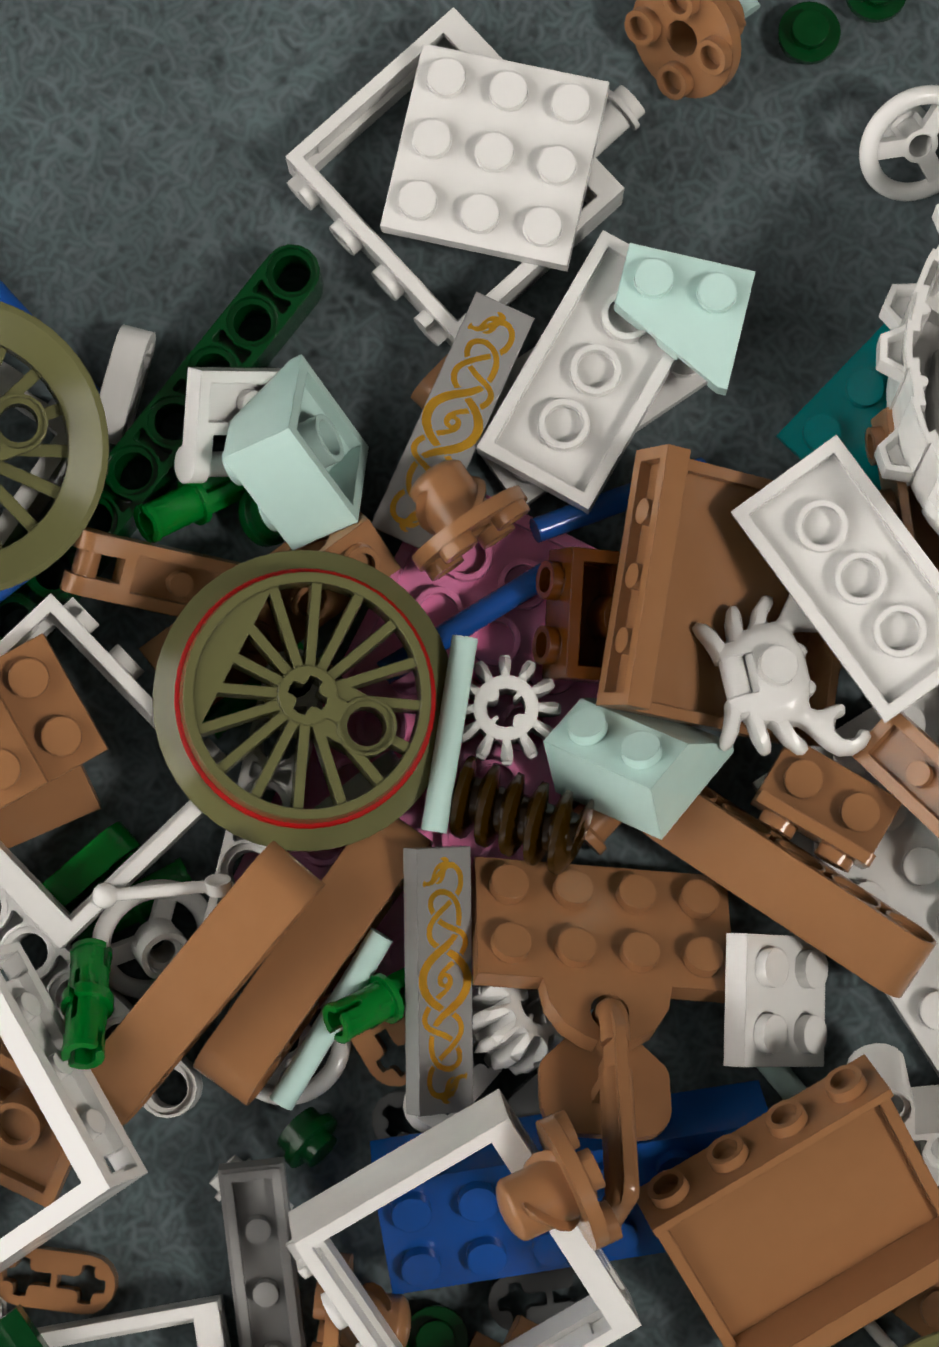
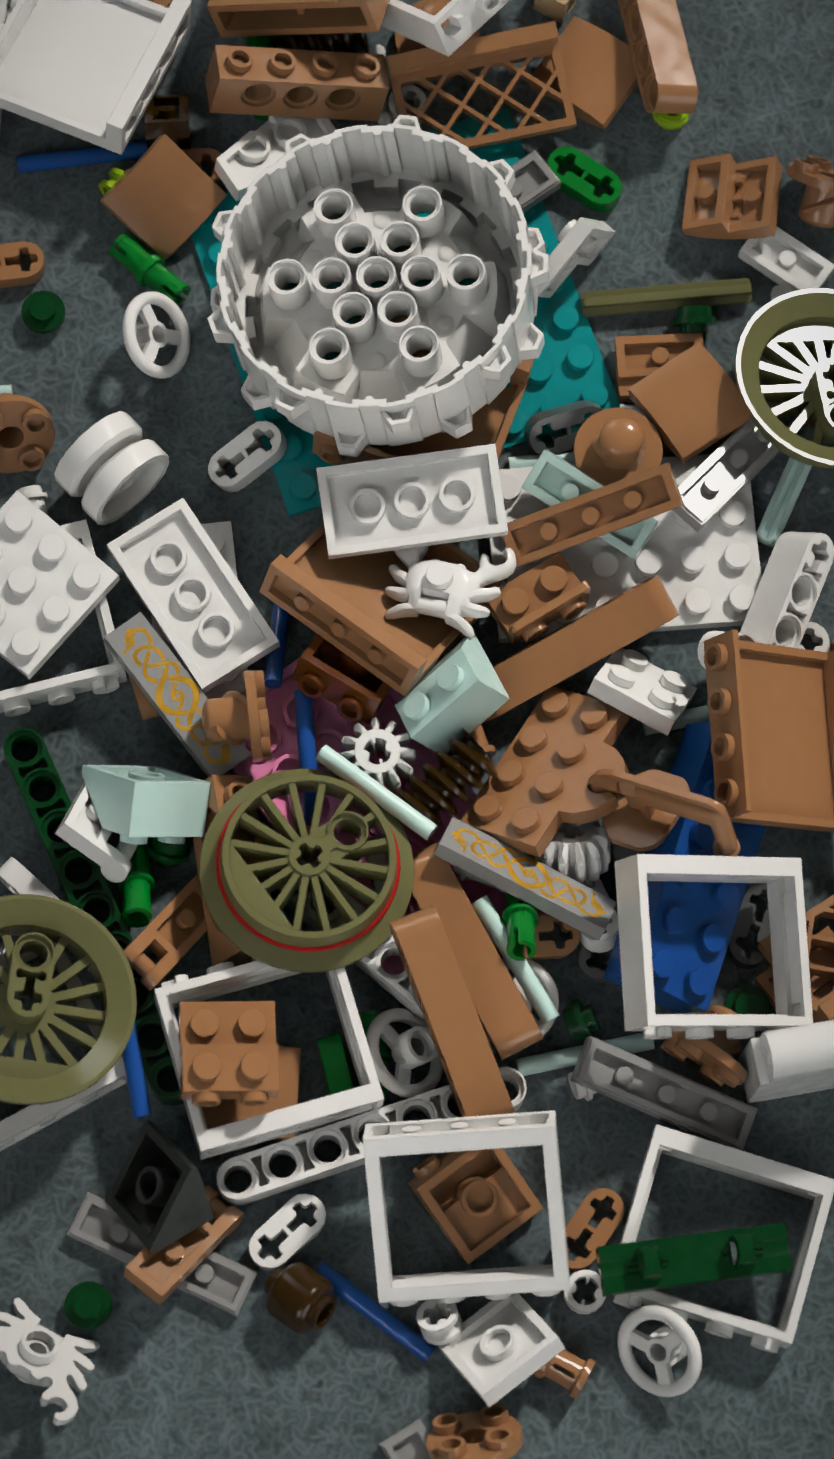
camera: 70 degrees left, 10 degrees down
(87, 1004) = (428, 1099): green pin -> none
(214, 885) = (395, 981): white hinge -> none
(259, 1142) = (569, 1056): none -> light aqua bar
(558, 1189) = (694, 842): medium nougat plate -> none
(687, 307) = (186, 517): light aqua wing -> none
(707, 182) = (111, 468): none -> white wheel
(809, 33) = (46, 364): dark green plate -> none
(827, 329) = (241, 449): none -> white beam

